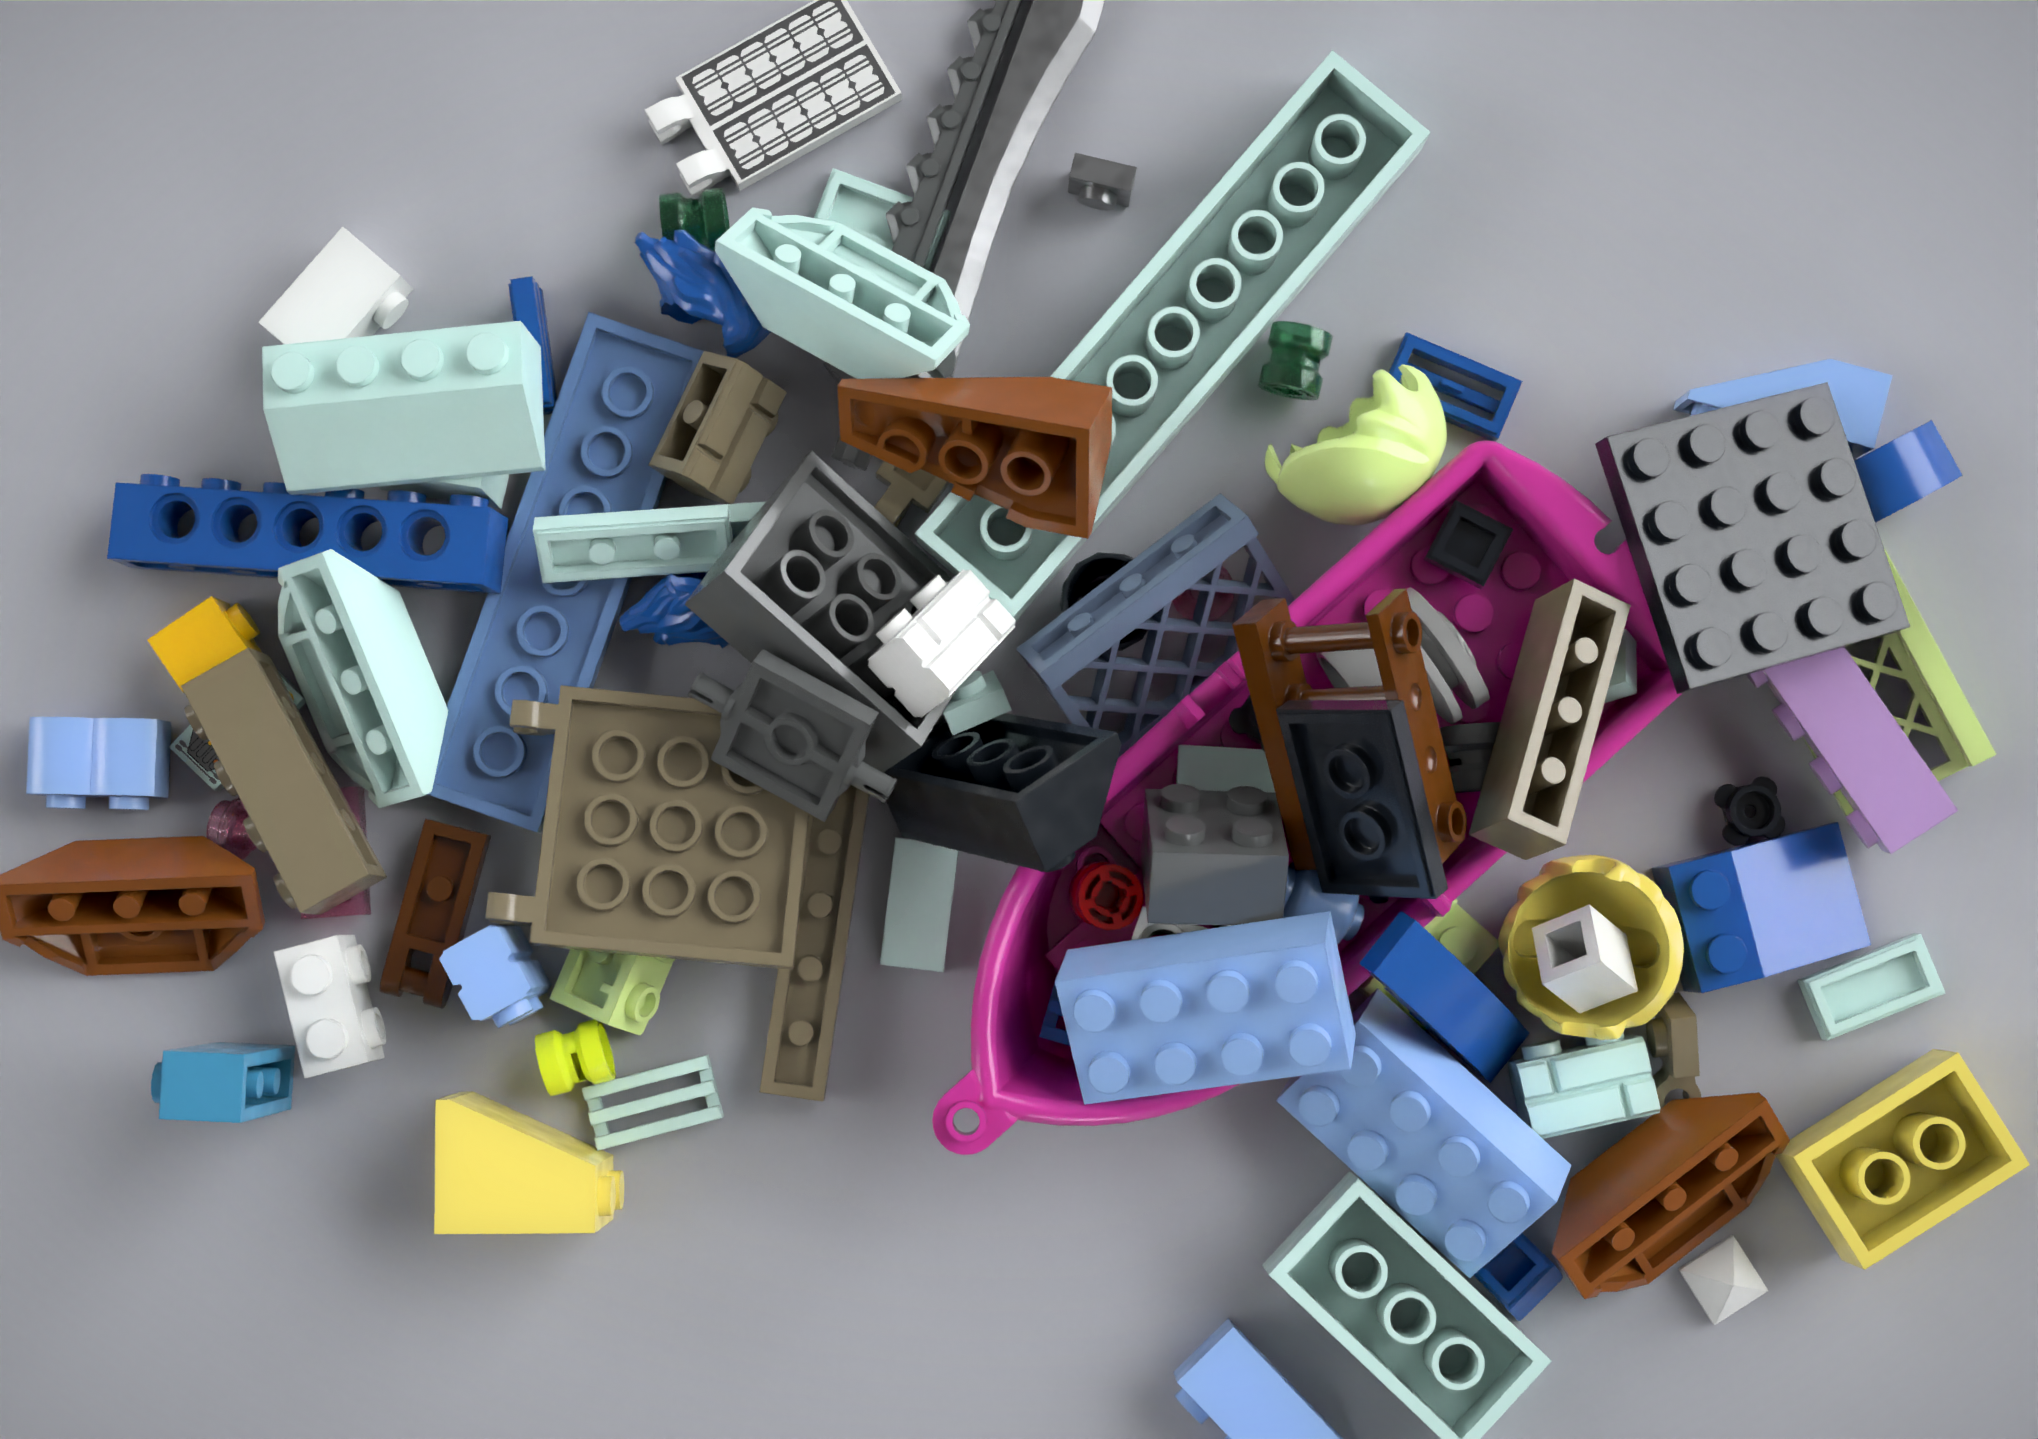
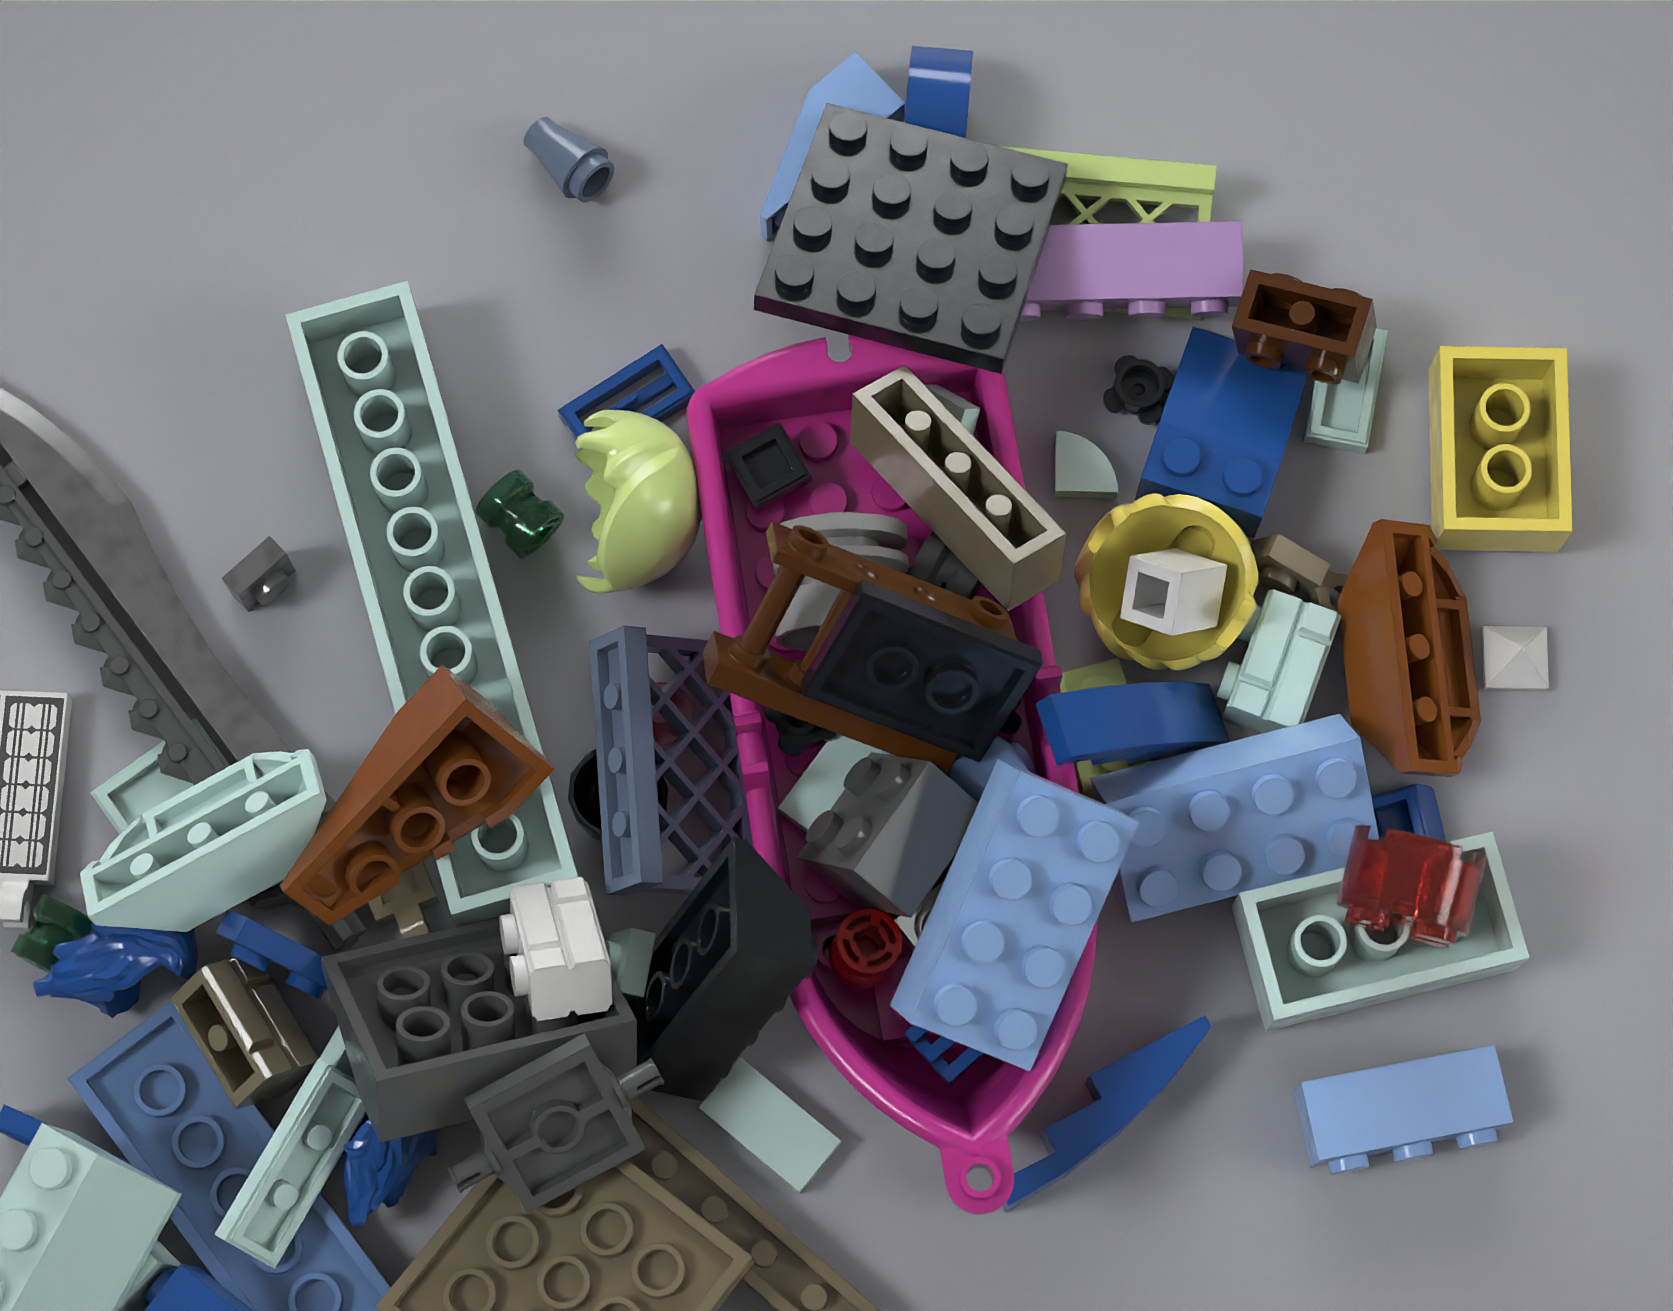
camera: 55 degrees left, 10 degrees down
(791, 394) = (260, 945): none -> blue plate
(1127, 1181) = (1119, 1097): none -> blue slope
(1454, 1326) = (1410, 884): none -> clear red brick
(1633, 197) = (571, 161): none -> sand blue cone
(1647, 807) = (1081, 469): none -> light aqua tile
(1898, 922) = (1304, 327): none -> reddish brown brick

